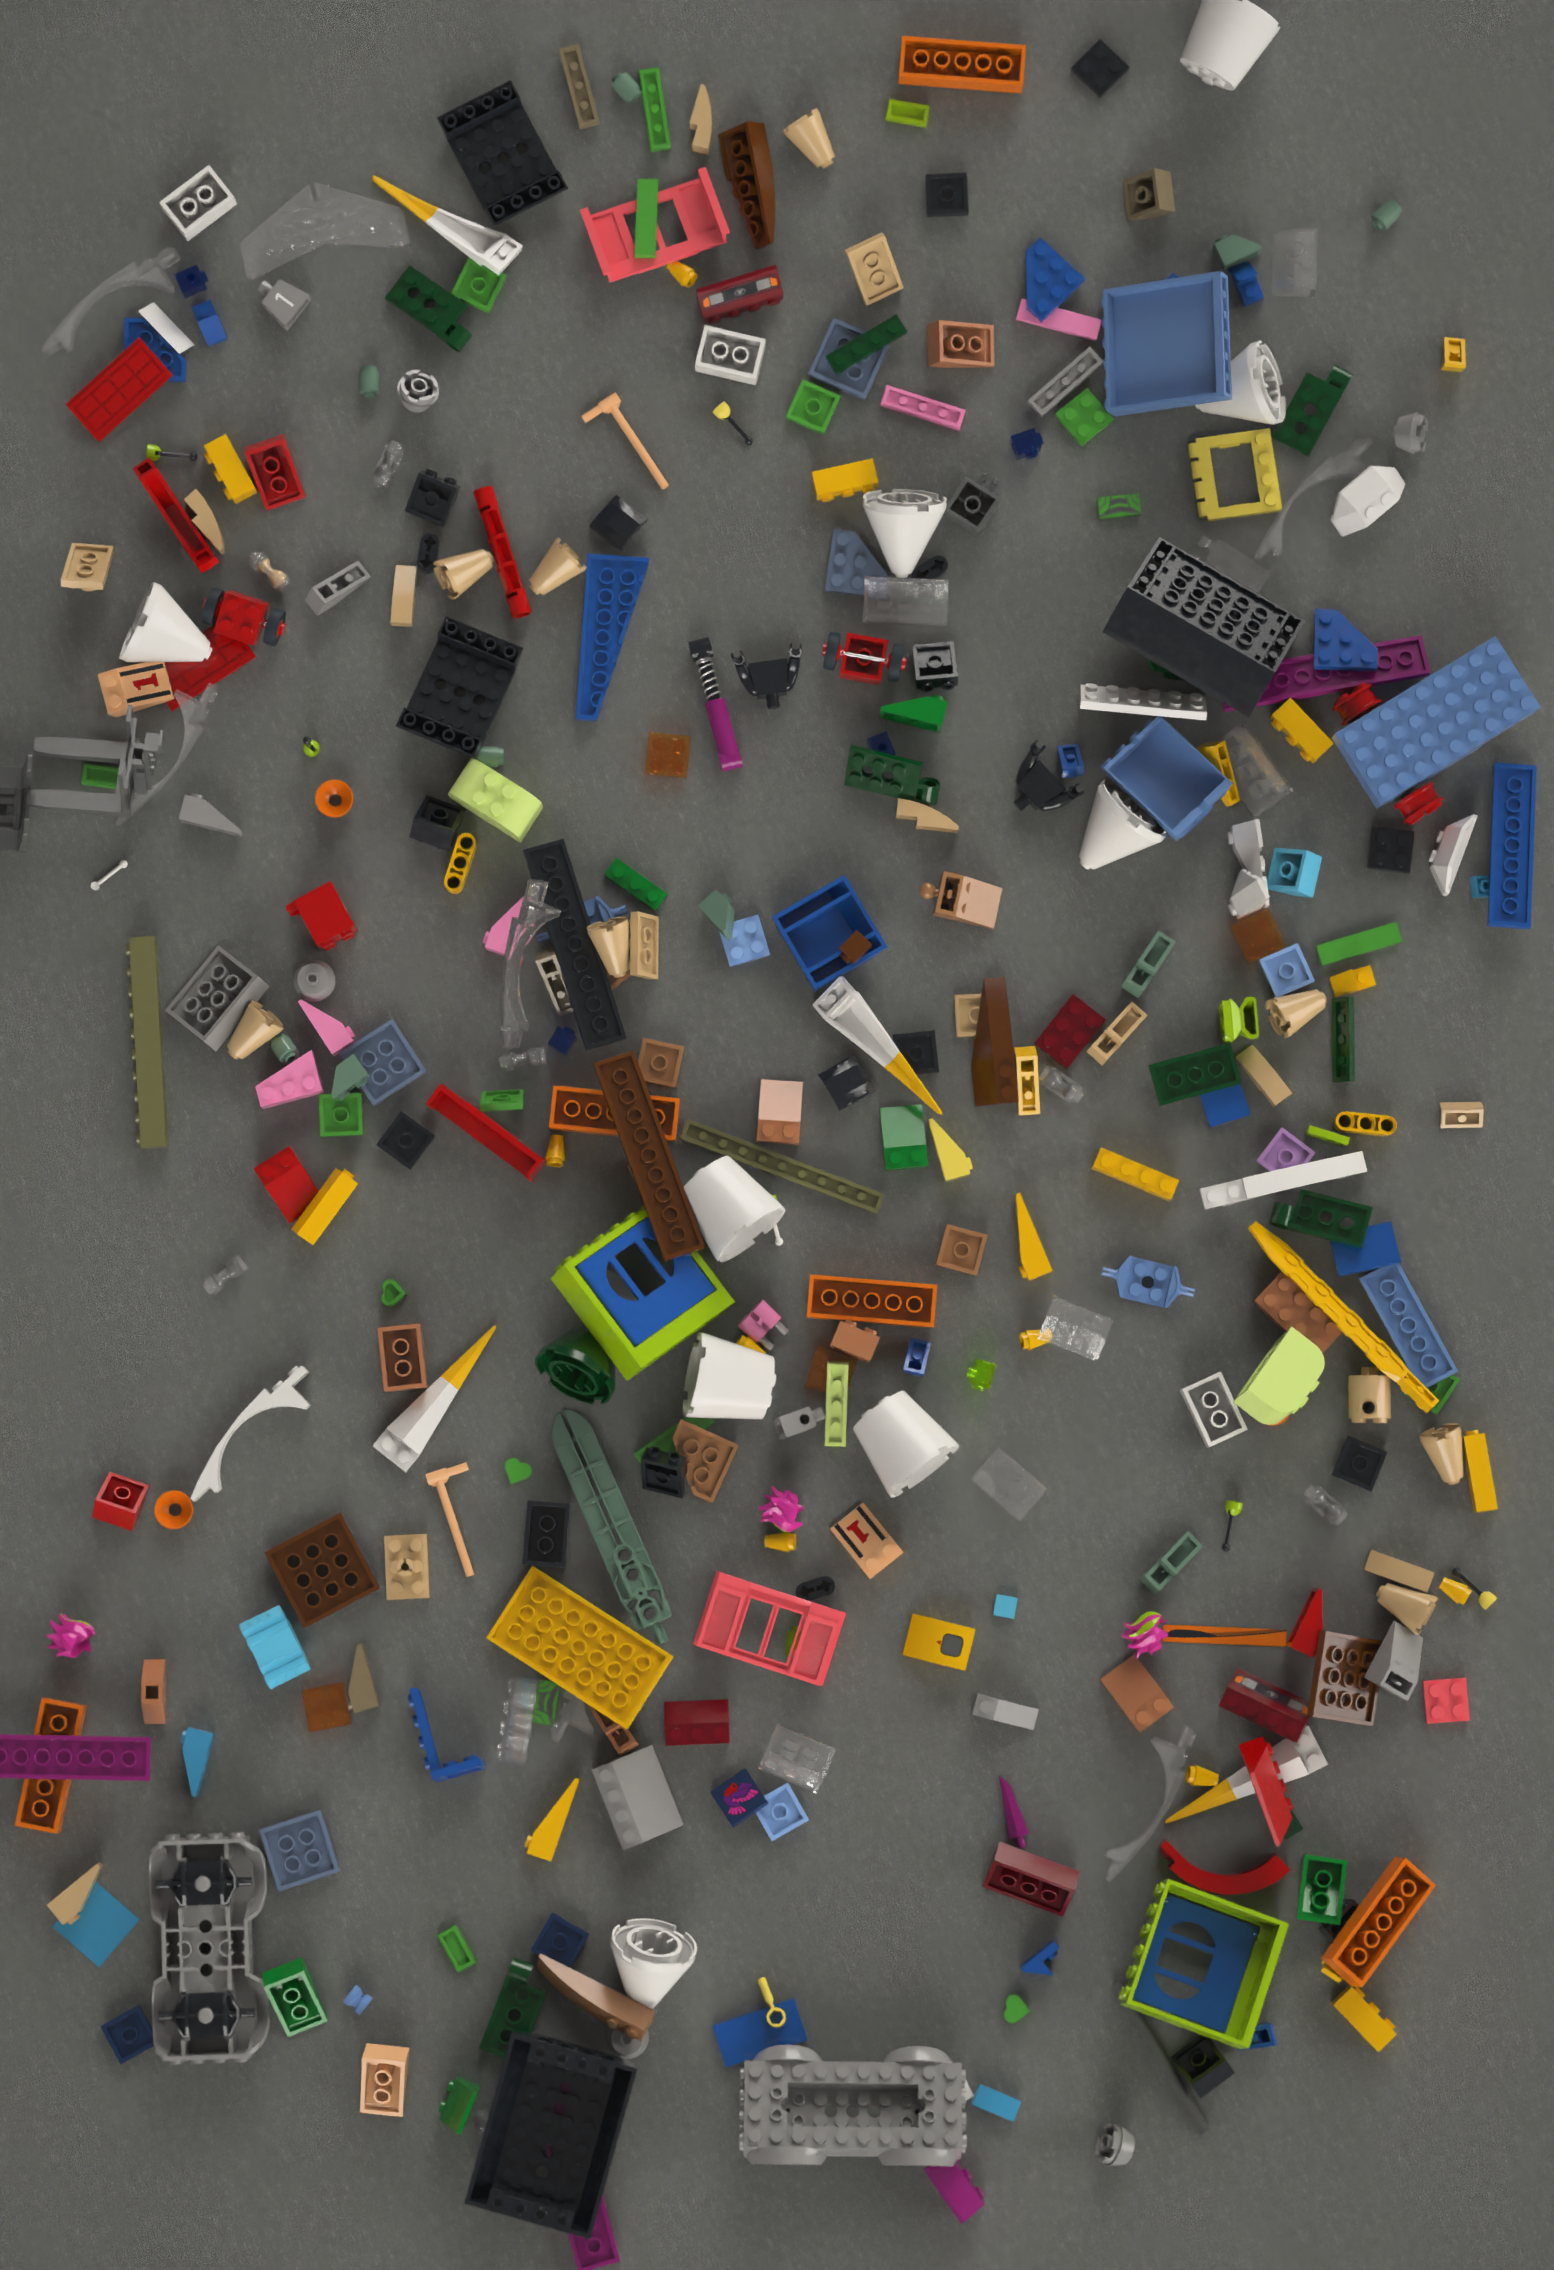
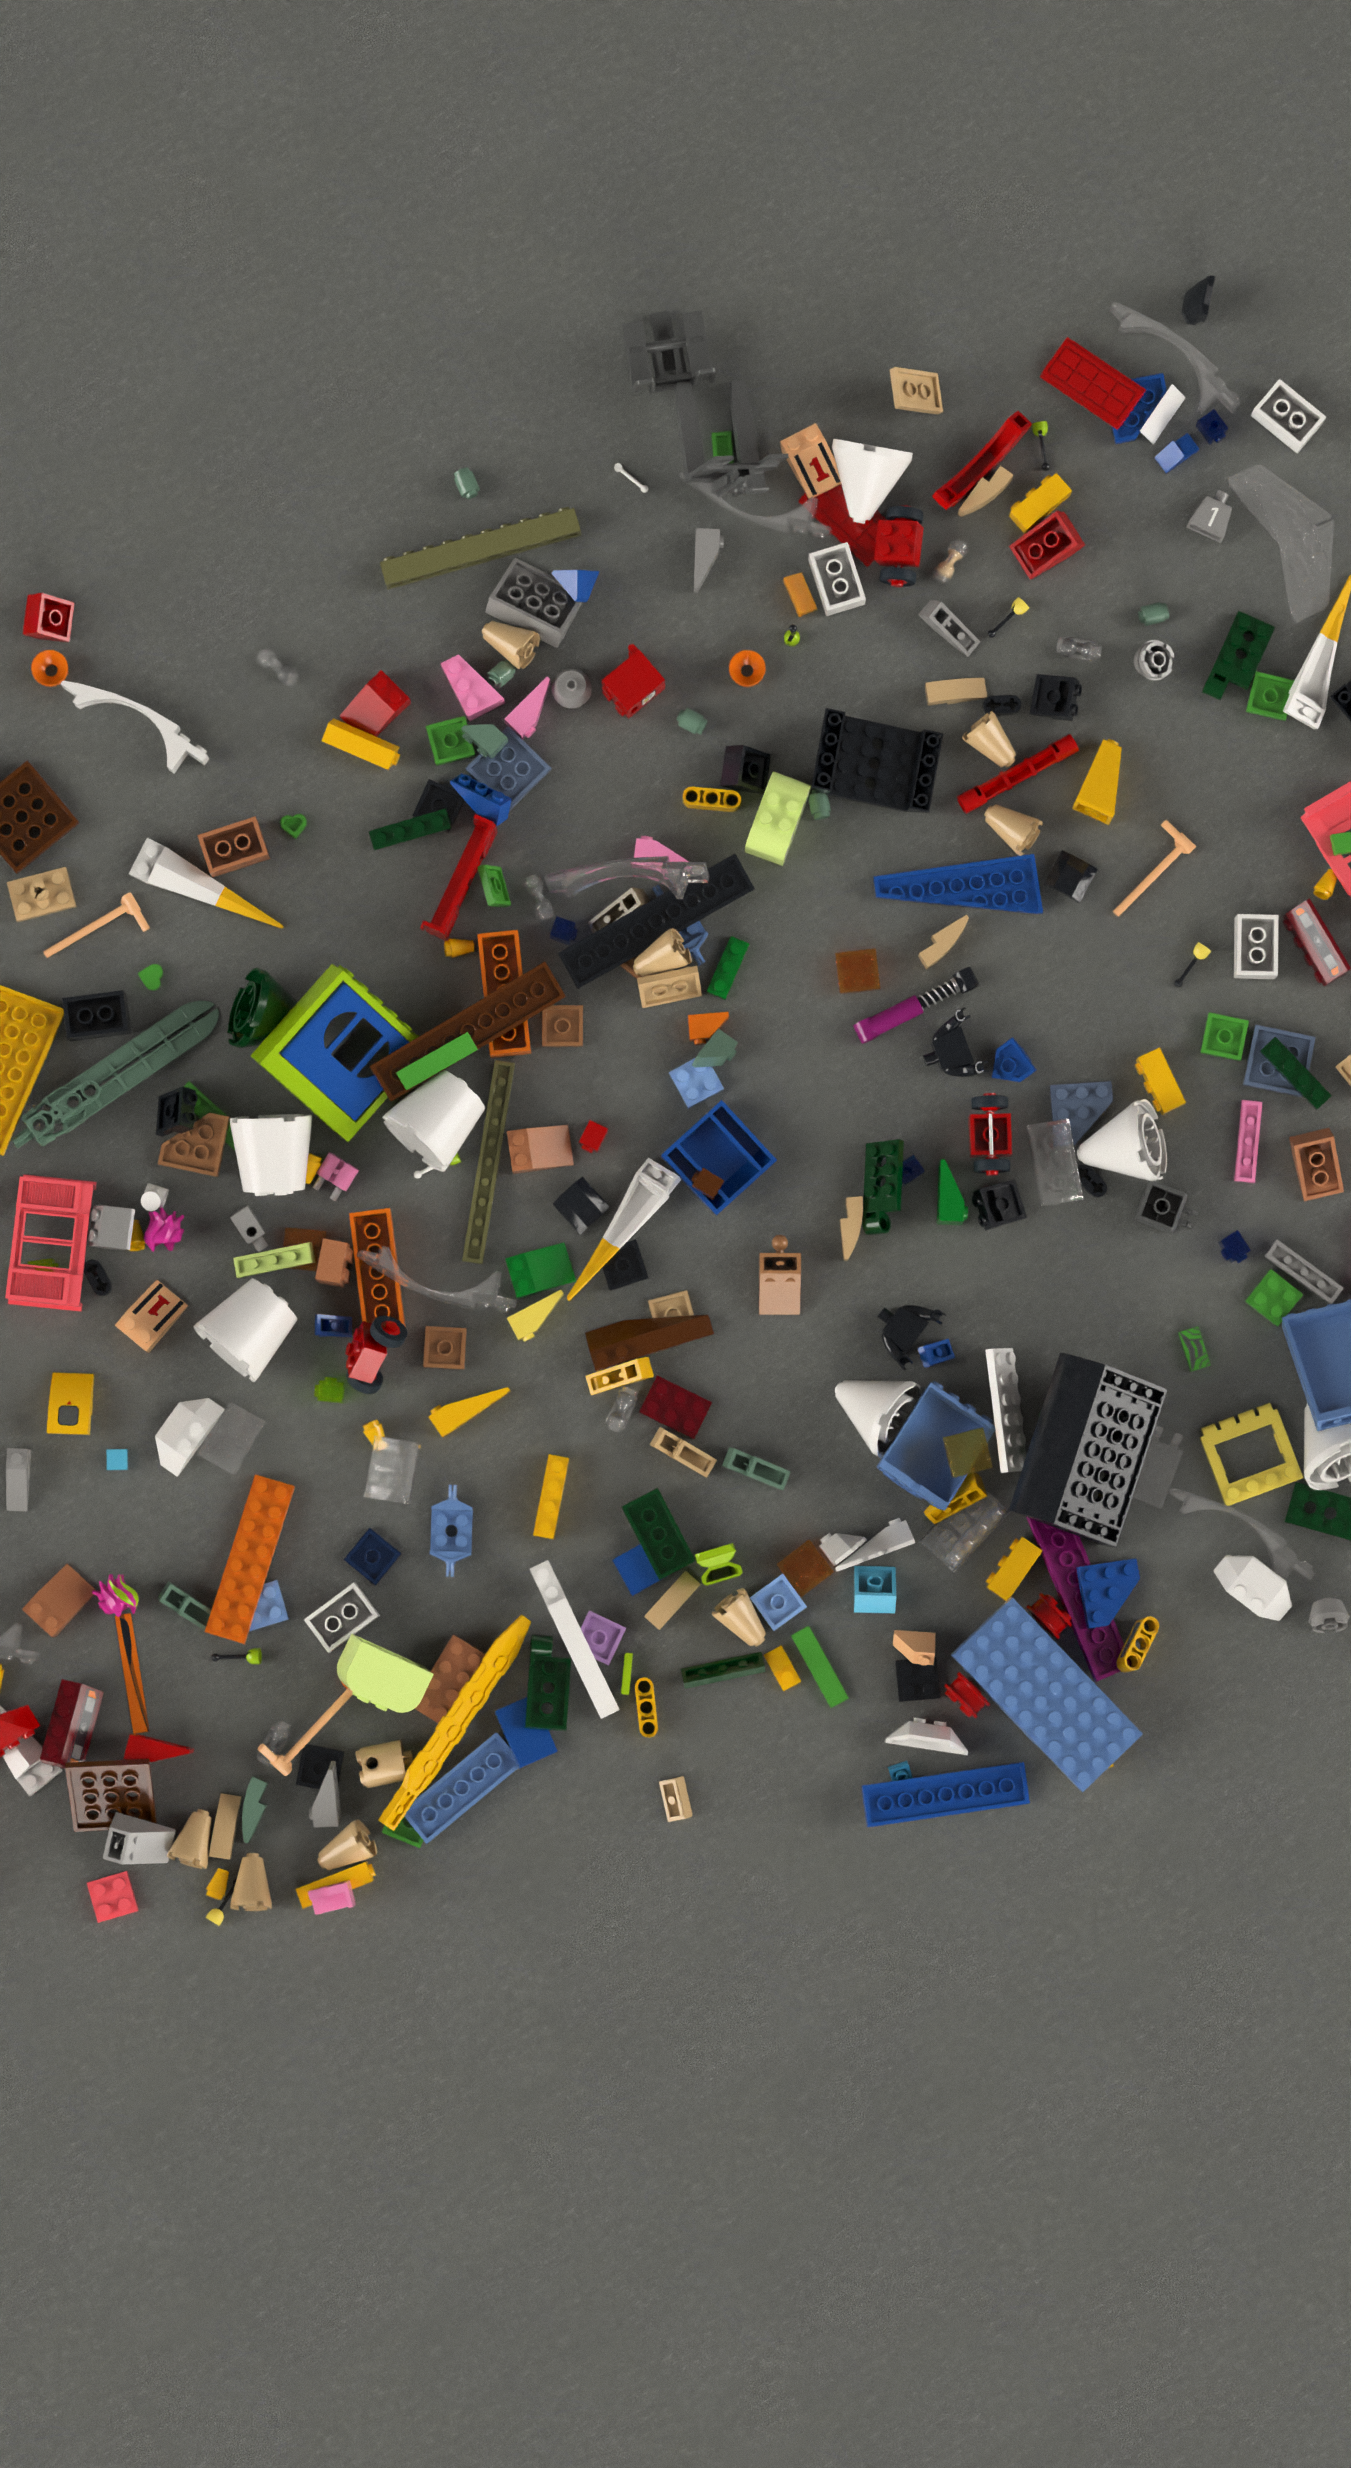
camera: 80 degrees right, 0 degrees up
(59, 266) = (1197, 301): none -> black slope
(77, 1042) = (466, 483): none -> sand green brick
(206, 951) = (577, 582): none -> blue slope
(262, 688) = (837, 579): none -> white brick
(268, 730) = (800, 594): none -> light orange slope
(332, 514) = (1018, 607): none -> hinge
(375, 866) = (692, 721): none -> sand green brick
(409, 1094) = (483, 799): none -> blue slope
(424, 1174) = (410, 829): none -> dark green plate
(533, 472) = (1100, 786): none -> yellow slope
(658, 663) = (943, 942): none -> tan slope
(673, 1192) = (436, 1061): none -> bright green tile
(691, 919) = (705, 1025): none -> orange slope
(746, 1513) = (154, 1197): none -> white piece
(769, 1562) = (111, 1227): none -> light grey slope
(779, 1055) = (593, 1137): none -> red brick
(794, 621) = (1012, 1062): none -> blue plate
(916, 1200) = (484, 1294): none -> clear slope
(953, 1323) = (369, 1351): none -> brick
(991, 1530) = (185, 1432): none -> white wedge
(1135, 1491) = (249, 1559): none -> orange plate
(1157, 1367) = (372, 1556): none -> dark blue tile
(1179, 748) = (967, 1452): none -> clear yellow tile
(1183, 1488) = (270, 1607): none -> light blue plate
(1348, 1498) = (281, 1762): none -> light nougat bar
(1359, 843) = (916, 1646): none -> light nougat slope
(1385, 1539) = (252, 1807): none -> sand green slope
(1395, 1463) = (326, 1807): none -> light grey slope
(1404, 633) = (1145, 1639): none -> yellow beam
(1463, 1556) = (251, 1885): none -> tan cone
(1493, 1475) = (332, 1897): none -> bright pink panel

